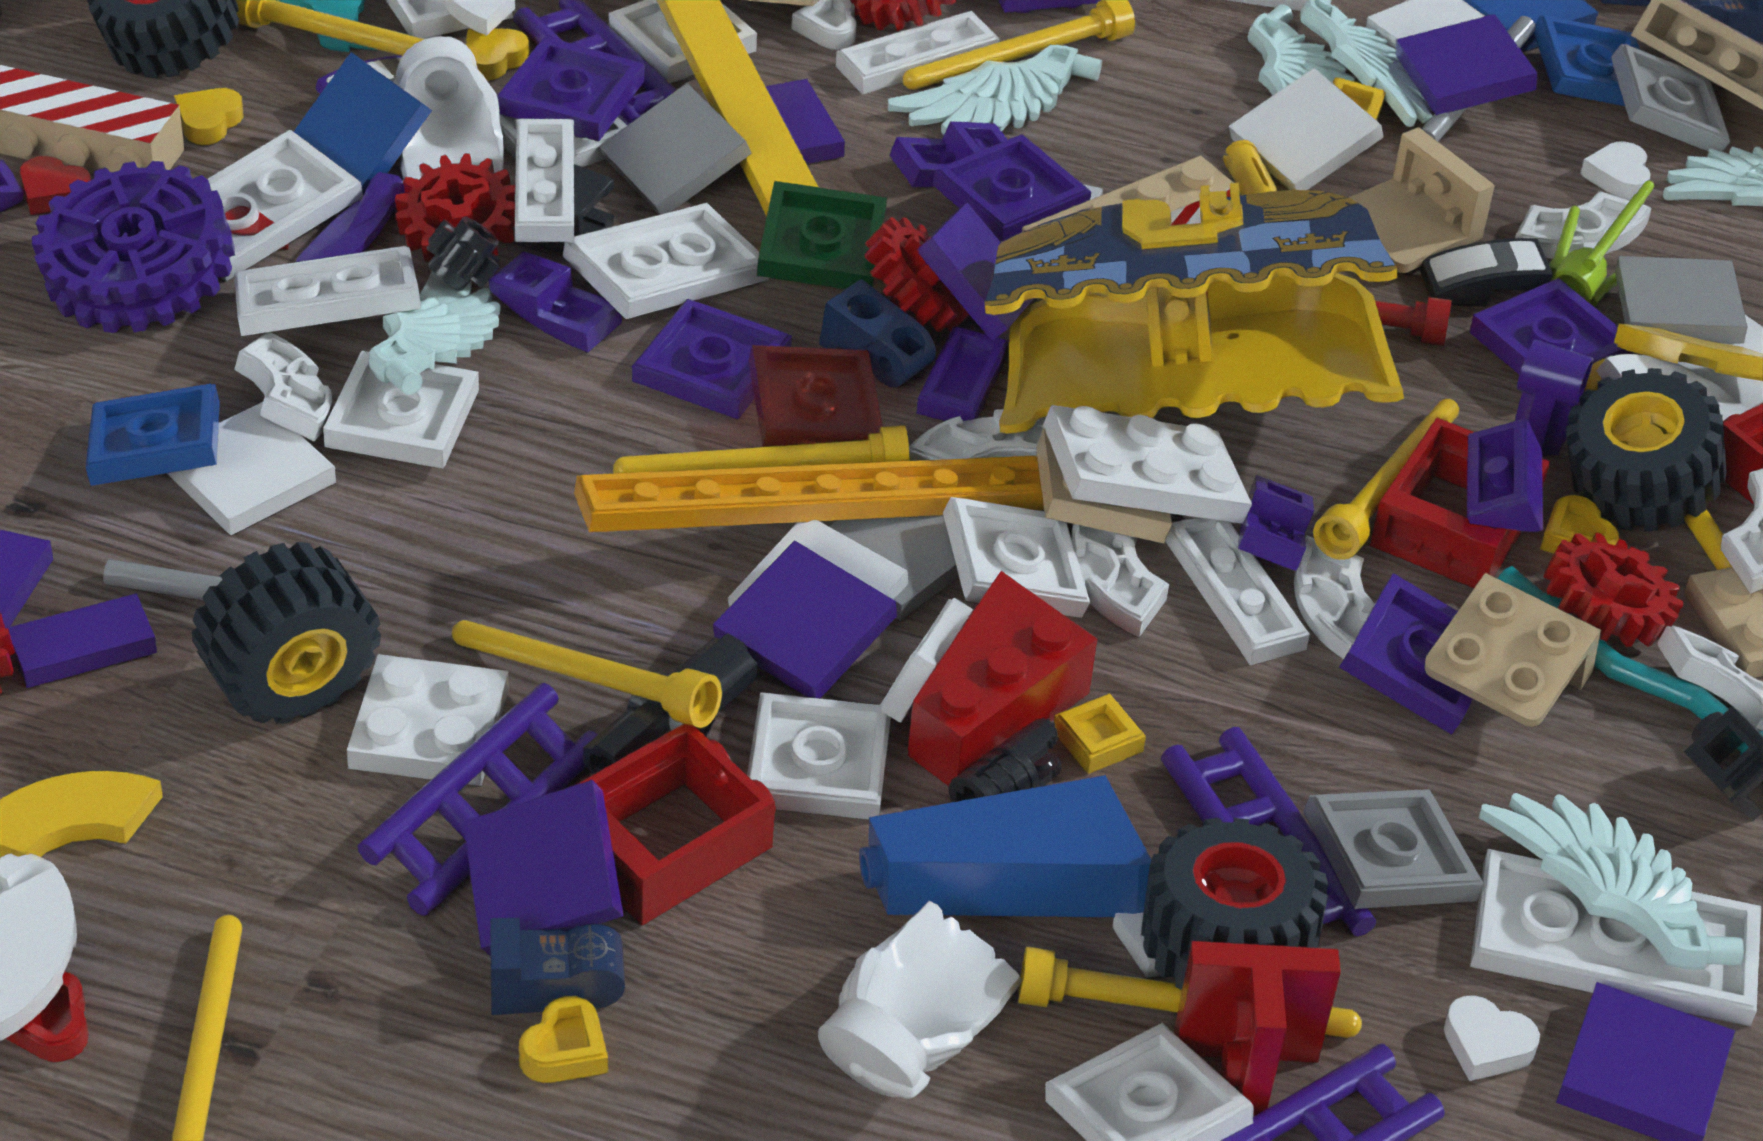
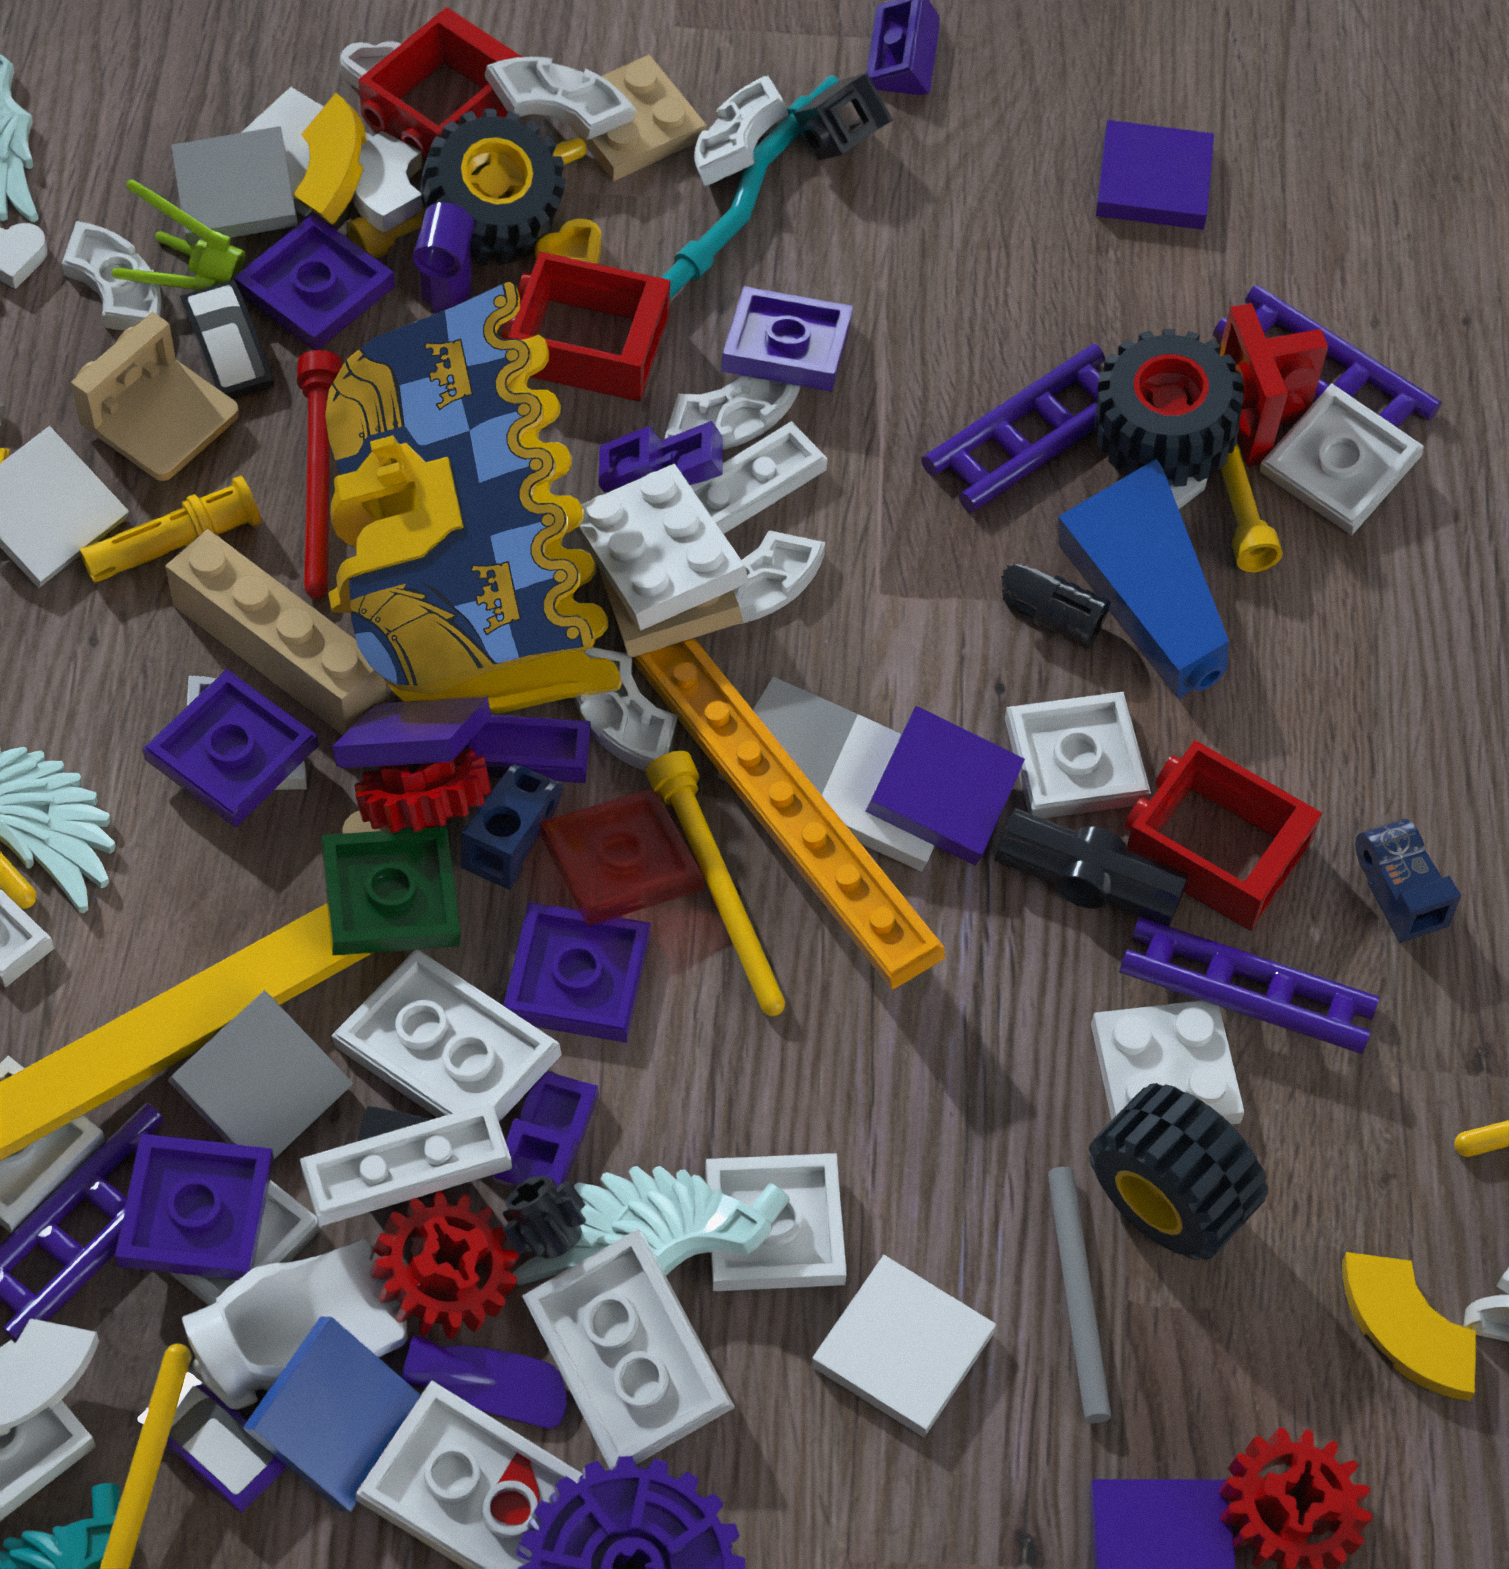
camera: 105 degrees left, 15 degrees up
(82, 640) = (1197, 1401): dark purple tile -> none
(153, 434) = (910, 1439): blue tile -> none
(289, 383) = (780, 1338): white tile -> none
(498, 51) = (118, 1345): yellow tile -> none
(544, 863) = (1330, 898): dark purple tile -> none
(565, 1043) = (1465, 857): yellow tile -> none
(687, 696) = (1120, 822): yellow piece -> none
(807, 121) = (138, 979): dark purple tile -> none
(915, 1003) = (1343, 614): white hair -> none
(921, 156) = (161, 825): dark purple slope -> none
(925, 659) = (971, 683): white tile -> none
(998, 675) = (961, 624): red wedge -> none
(1020, 544) = (789, 647): white tile -> none
(1099, 733) = (963, 558): yellow tile -> none
(1346, 526) = (668, 397): yellow piece -> none
(1392, 848) = (1018, 337): light grey tile -> none
(1489, 1039) = (1174, 266): white tile -> none
(1505, 478) = (587, 275): dark purple slope -> none
(1513, 651) = (780, 265): tan bracket -> none
(1543, 933) = (1034, 200): white tile -> none
(1613, 589) = (665, 210): red gear -> none
(1616, 876) = (991, 192): light aqua animal -> none

